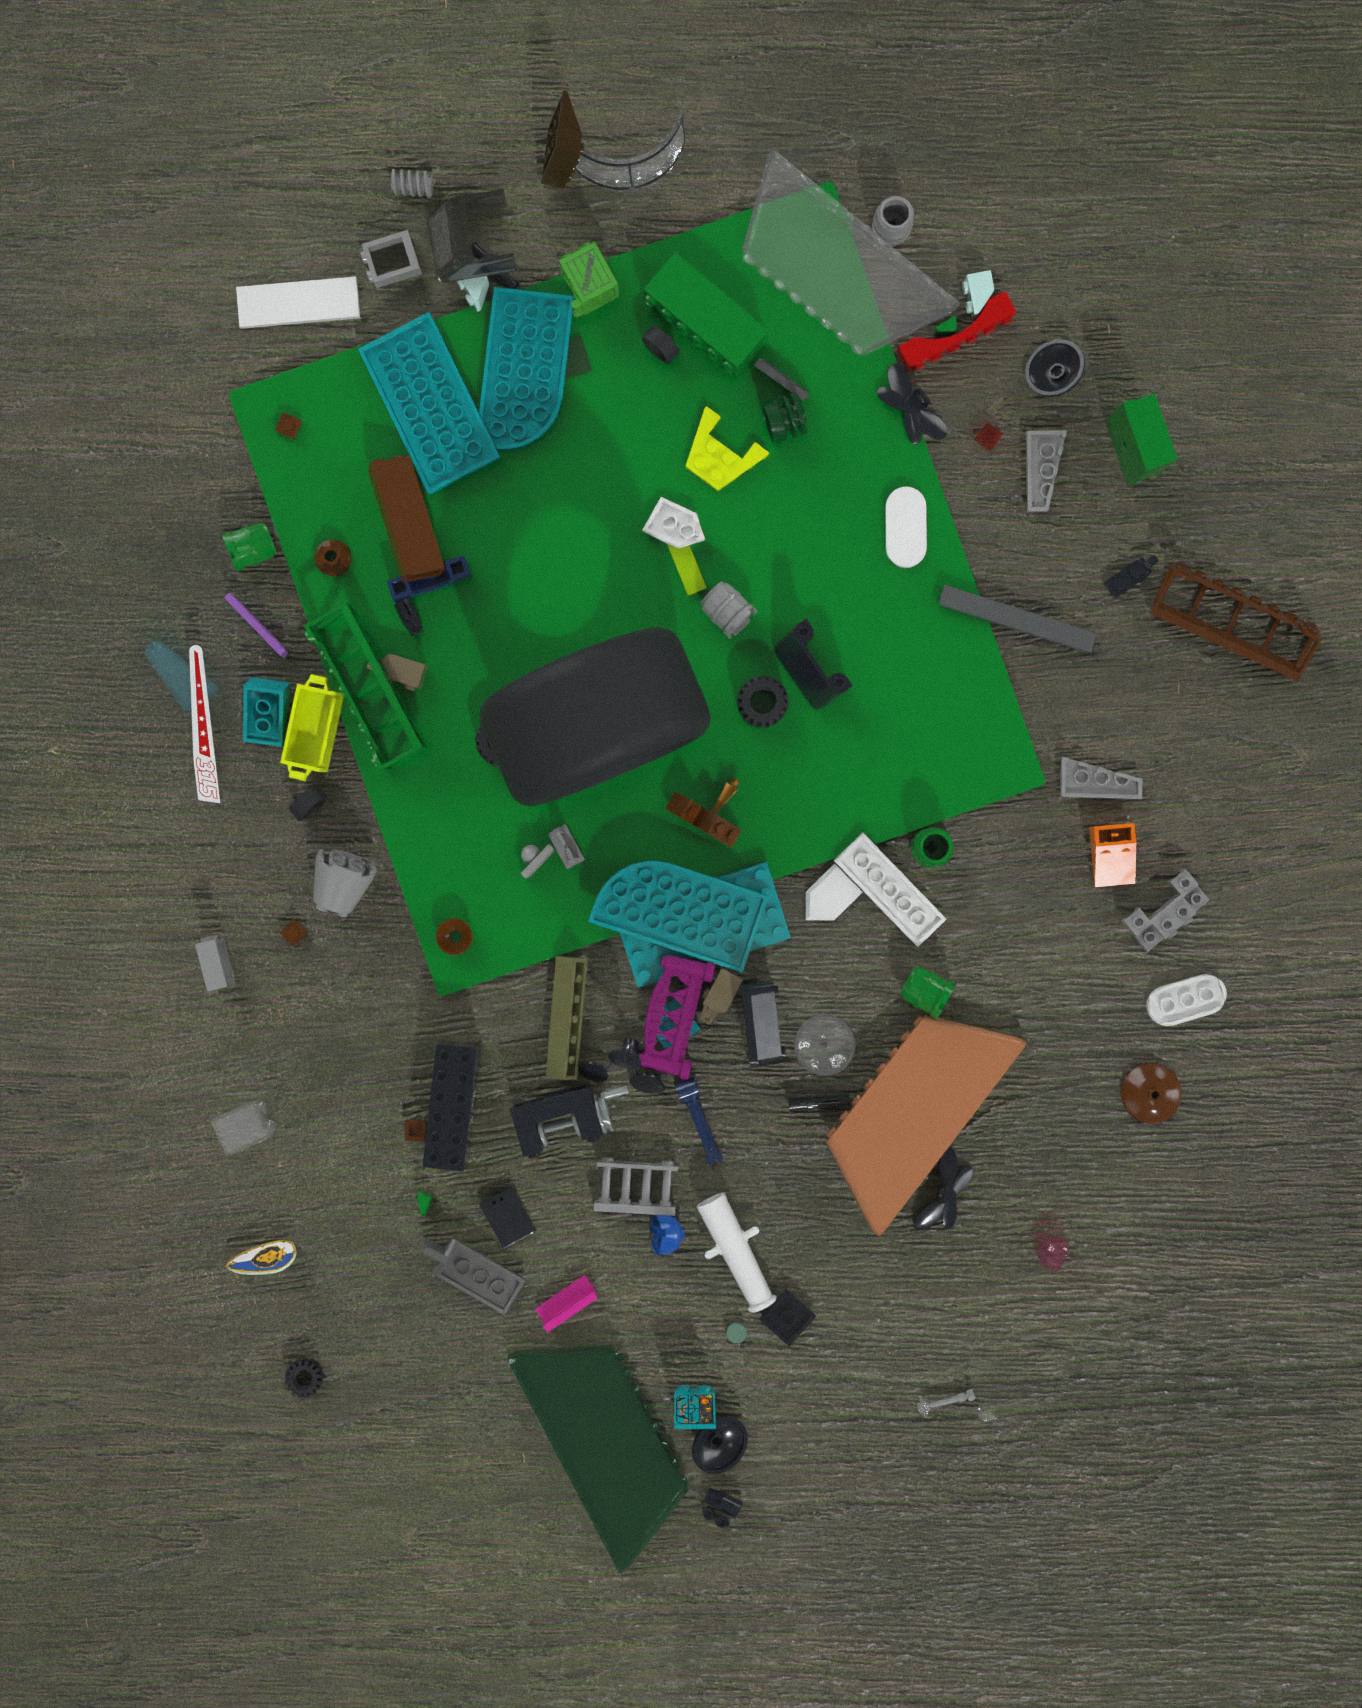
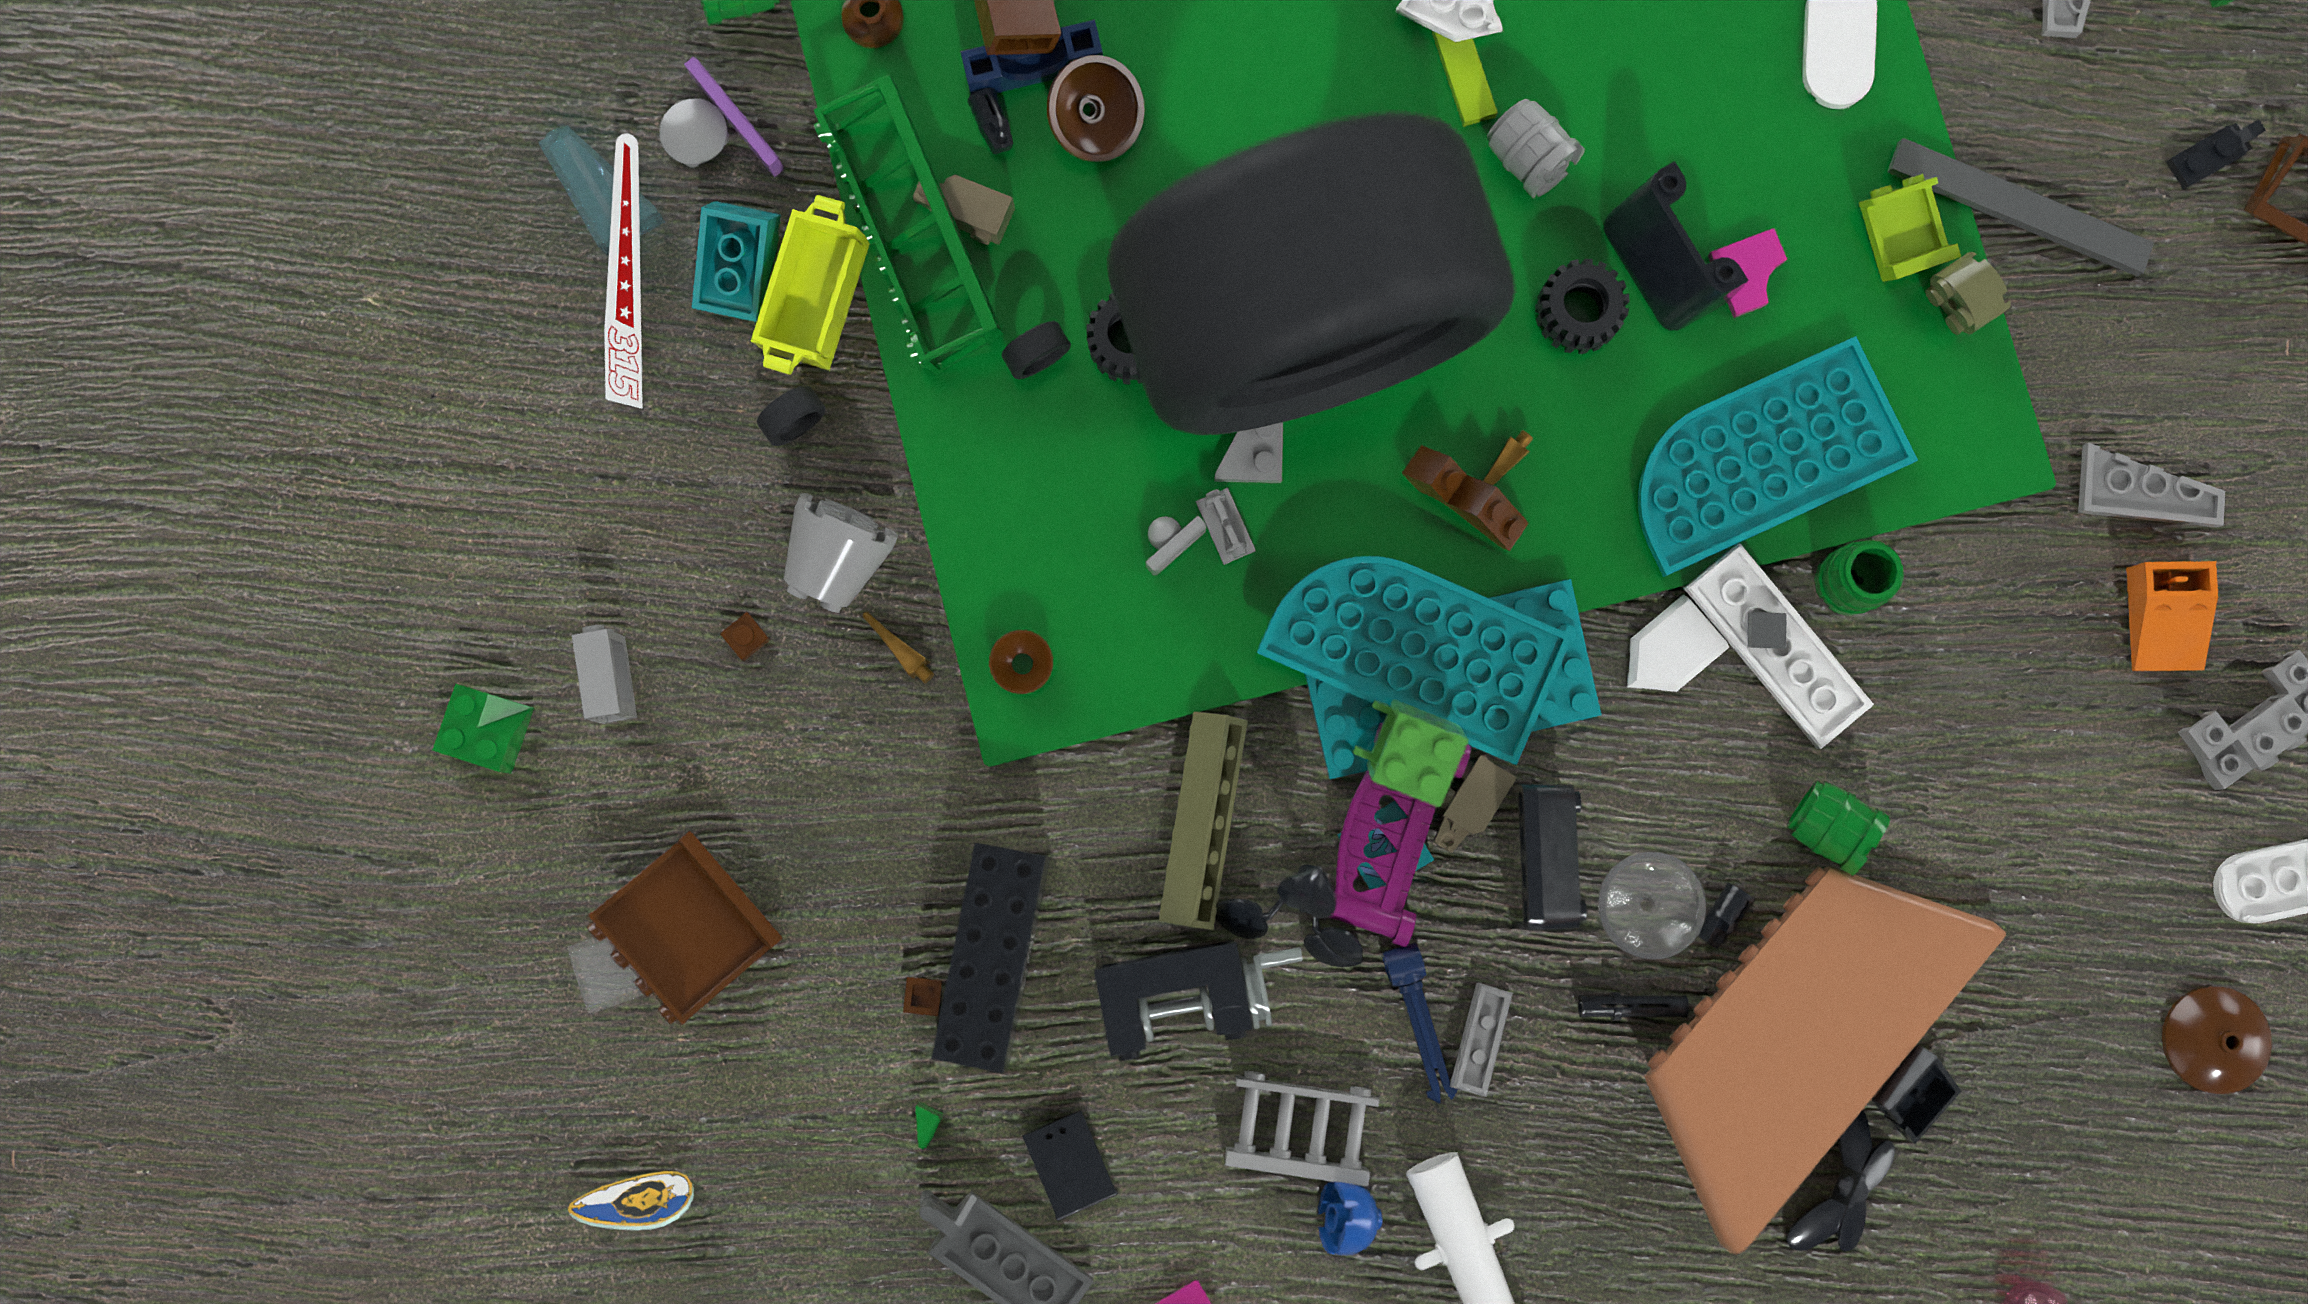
camera: 10 degrees right, 5 degrees down
(148, 999) = (483, 729): none -> green slope
(233, 635) = (693, 132): none -> light grey dish
(275, 1104) = (683, 929): none -> reddish brown panel
(389, 937) = (911, 660): none -> pearl gold piece
(446, 754) = (1036, 350): none -> black tyre
(480, 610) = (1114, 108): none -> reddish brown dish
(579, 805) = (1254, 456): none -> light grey wing
(680, 972) = (1415, 752): none -> bright green container
(734, 1128) = (1481, 1039): none -> light grey tile
(859, 668) = (1757, 259): none -> dark pink tile
(868, 1046) = (1725, 915): none -> black hinge
(876, 780) = (1768, 456): none -> teal plate
(881, 882) = (1766, 630): none -> dark grey tile
(949, 640) = (1906, 228): none -> lime panel
(978, 1138) = (1916, 1094): none -> black piece
(985, 676) = (1968, 294): none -> olive brick

